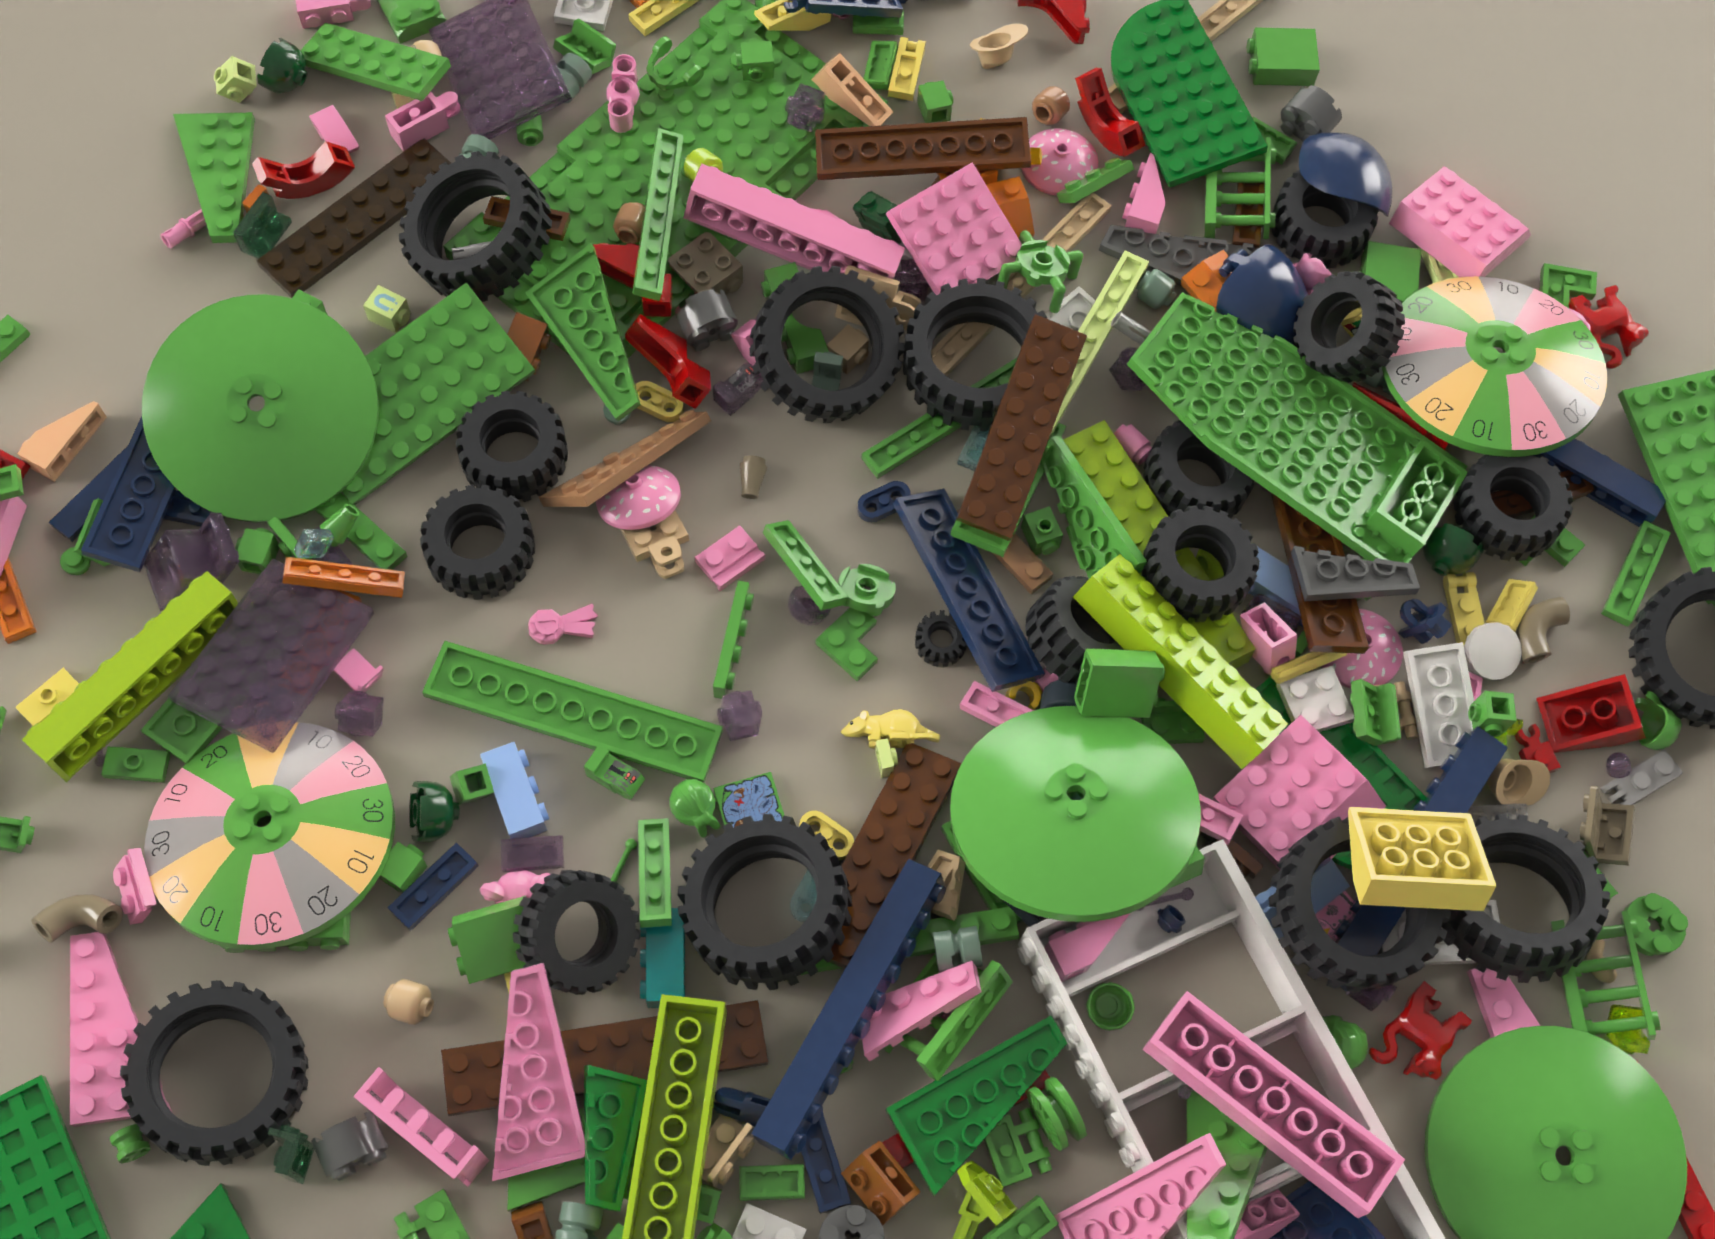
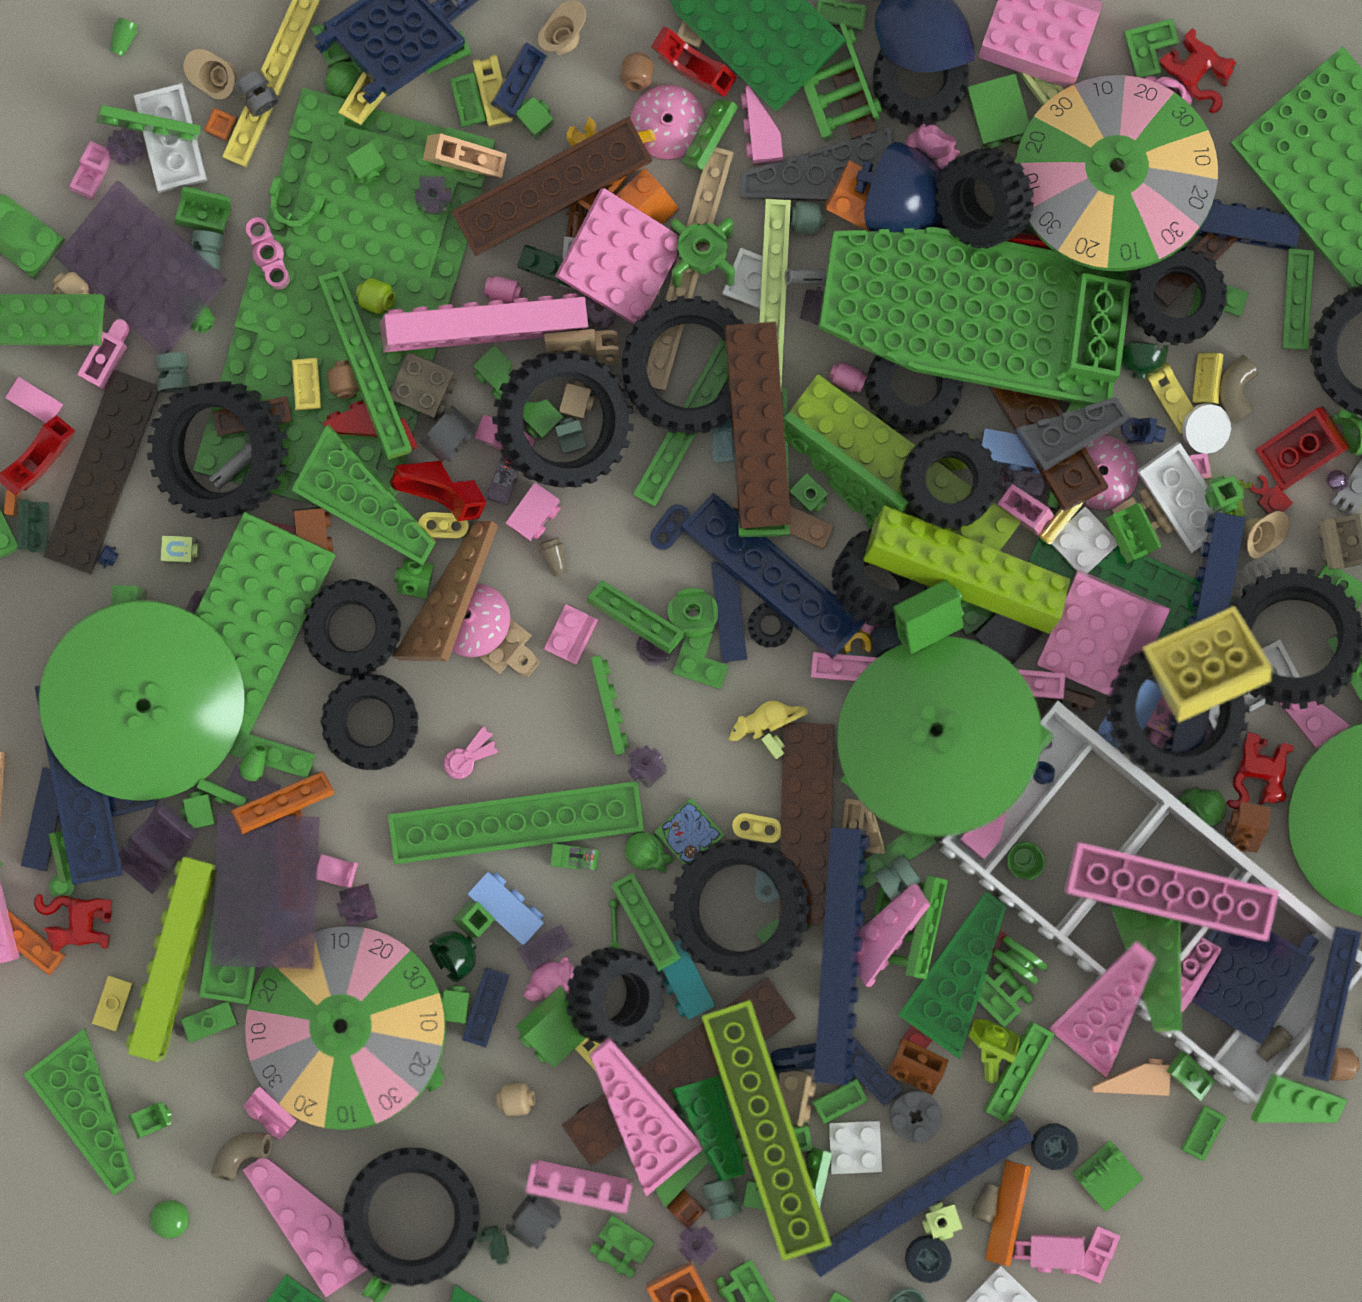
camera: 20 degrees left, 20 degrees up
(70, 600) = (81, 919): none -> red animal
(313, 543) = (245, 789): clear light blue plate -> none
(317, 286) = (108, 556): none -> dark blue plate
(594, 214) = (306, 384): none -> light yellow plate
(601, 432) = (414, 578): none -> bright green brick
(752, 425) = (533, 513): none -> bright pink brick
(903, 610) = (729, 614): none -> dark blue tile
(935, 64) = (518, 80): none -> dark blue plate
(1200, 755) = (1006, 636): none -> black tile
(1388, 1082) = (1248, 827): none -> dark orange brick

